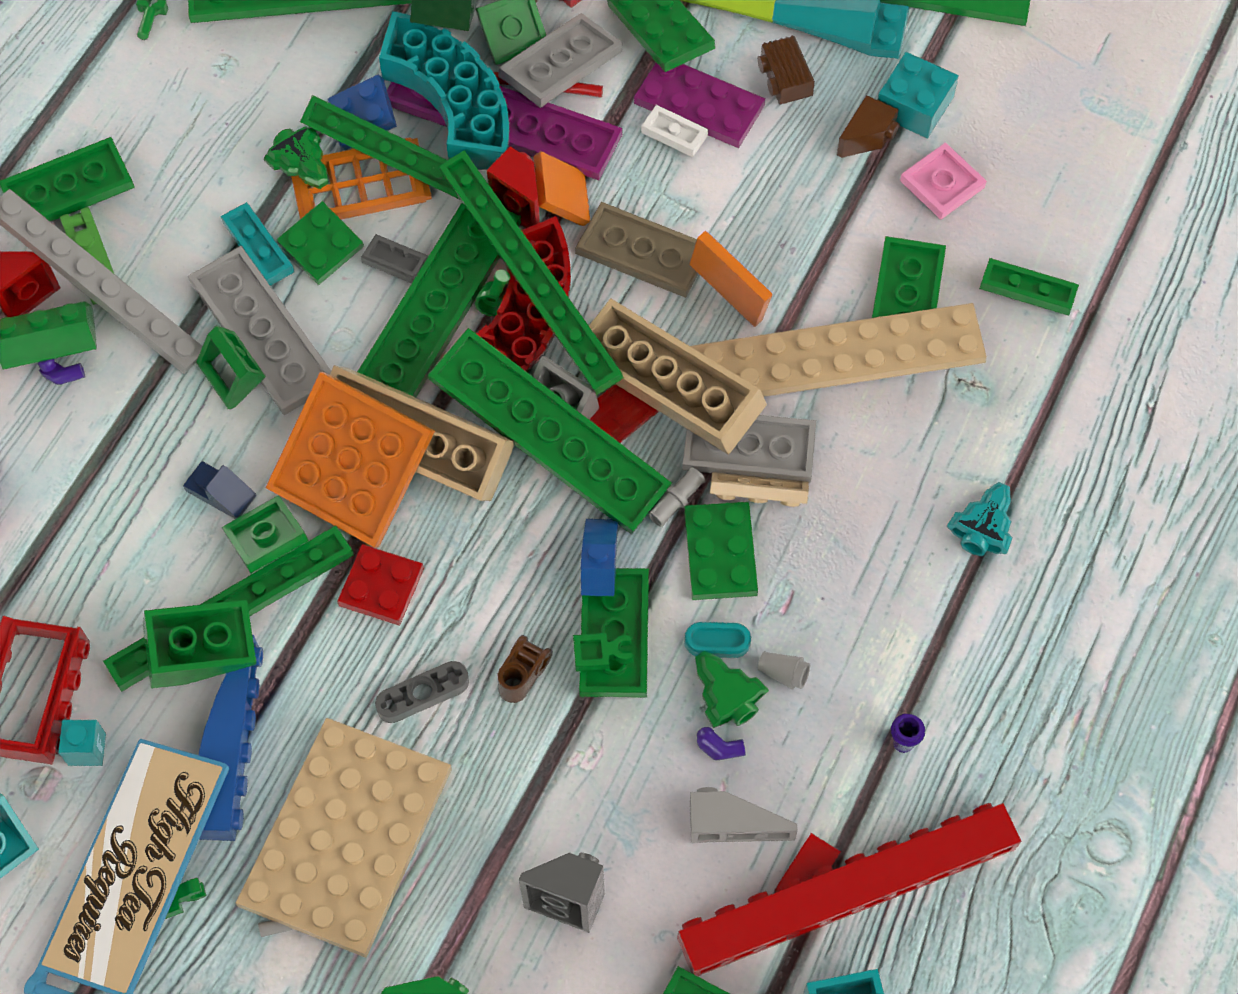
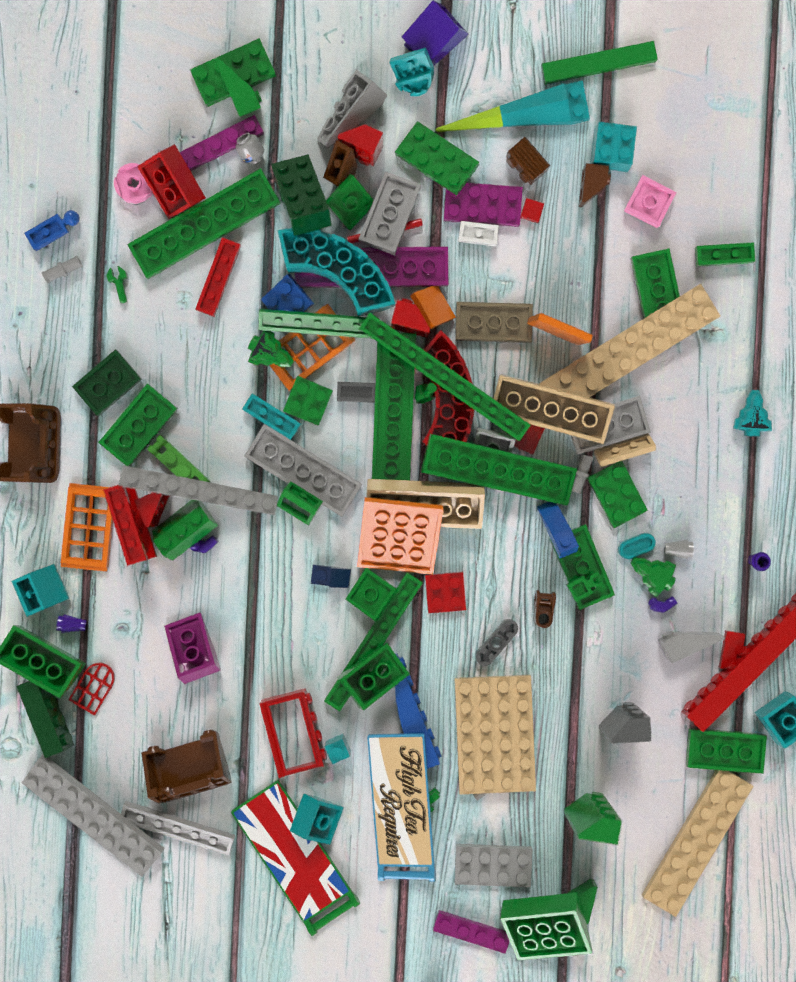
camera: 25 degrees left, 25 degrees up
(58, 118) = (107, 382): none -> dark green plate
(284, 52) = (218, 277): none -> red plate
(766, 133) = (532, 210): none -> red tile

